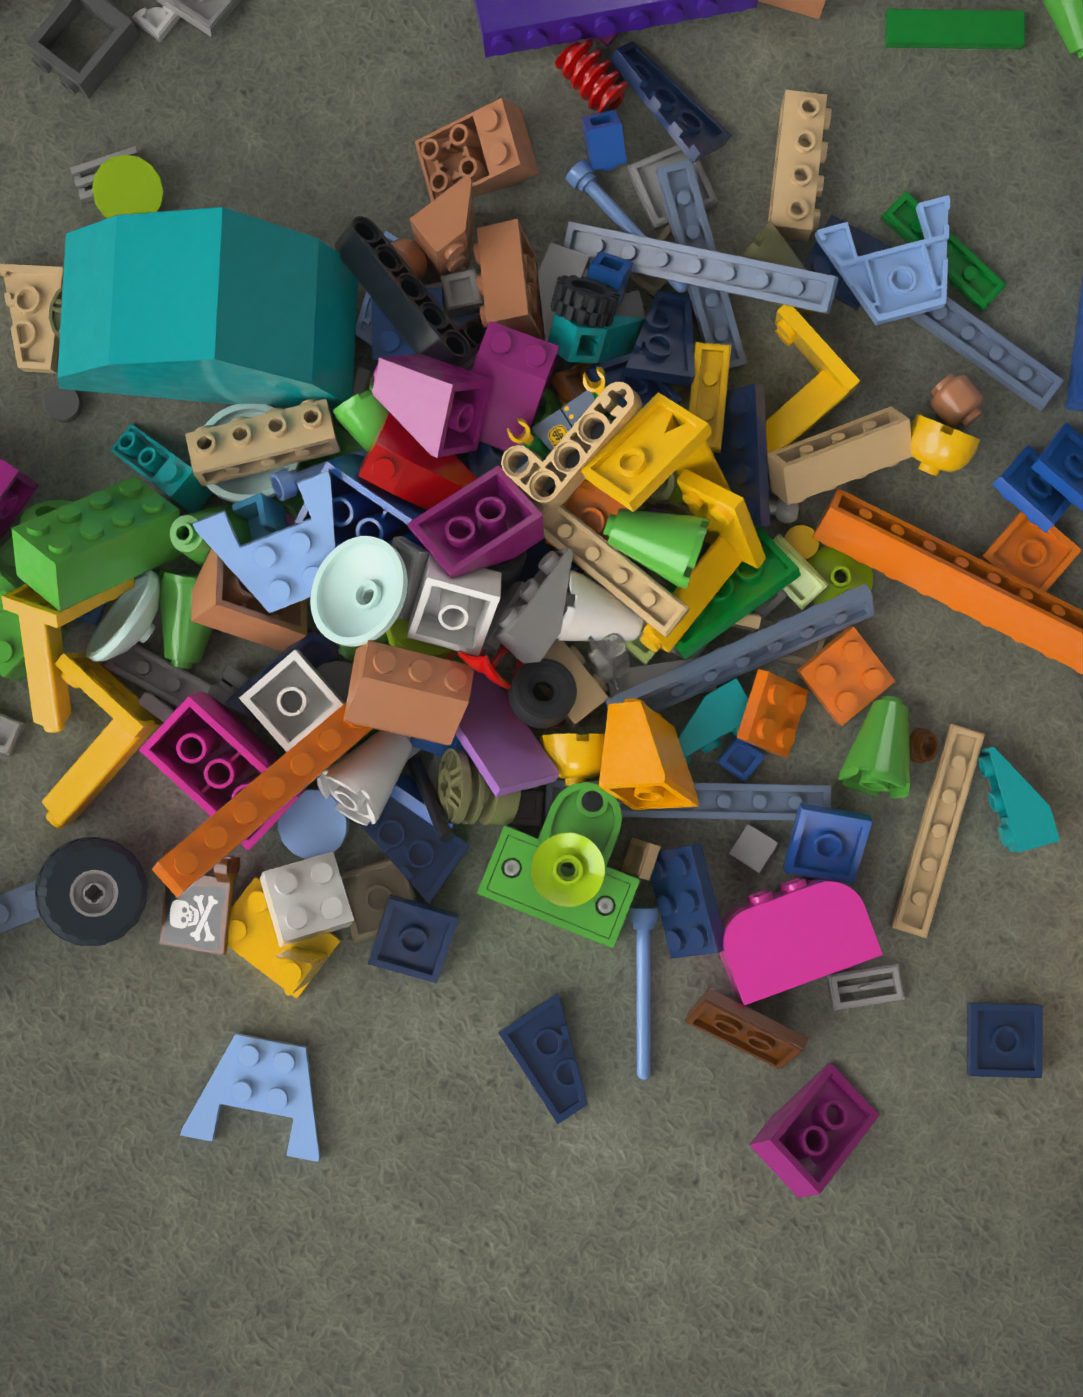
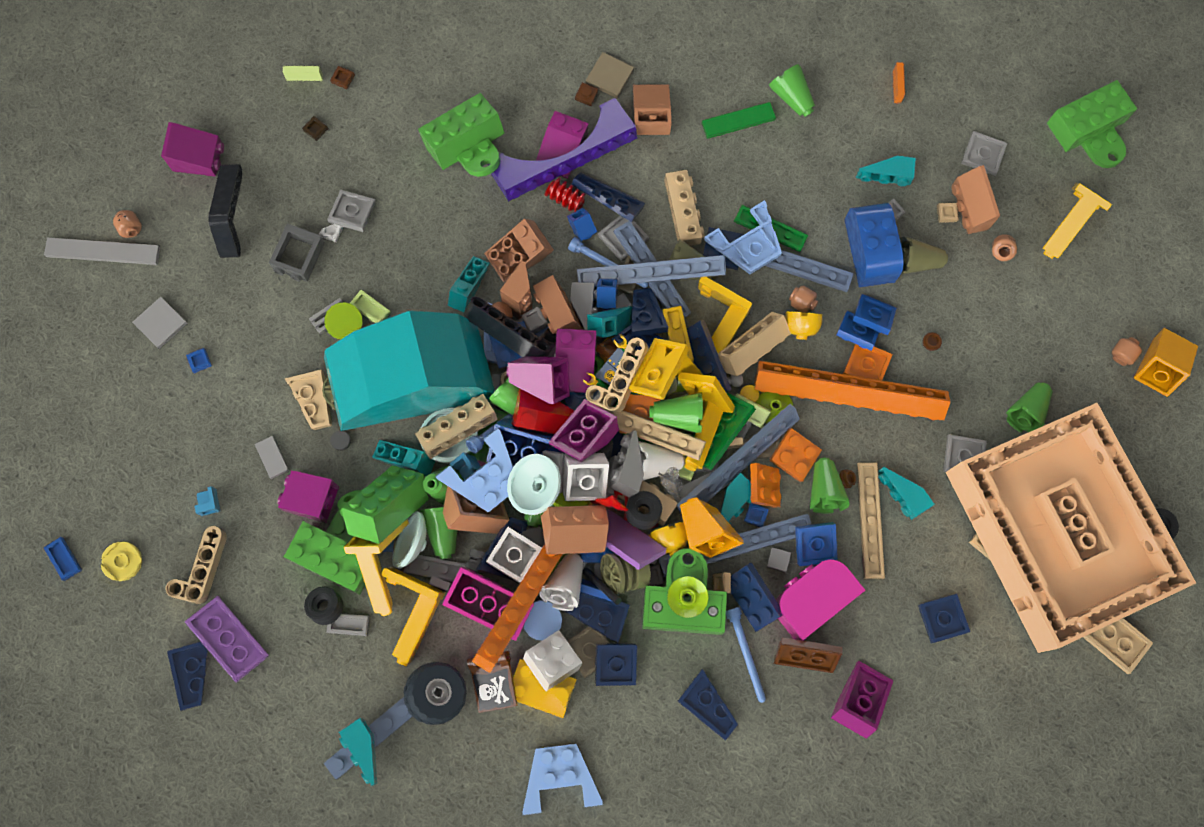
camera: 20 degrees left, 10 degrees down
(183, 179) = (370, 307): none -> yellowish green tile
(367, 187) = (467, 283): none -> teal slope
(585, 301) = (600, 305): black tyre -> none
(835, 991) = (847, 622): light grey tile -> none

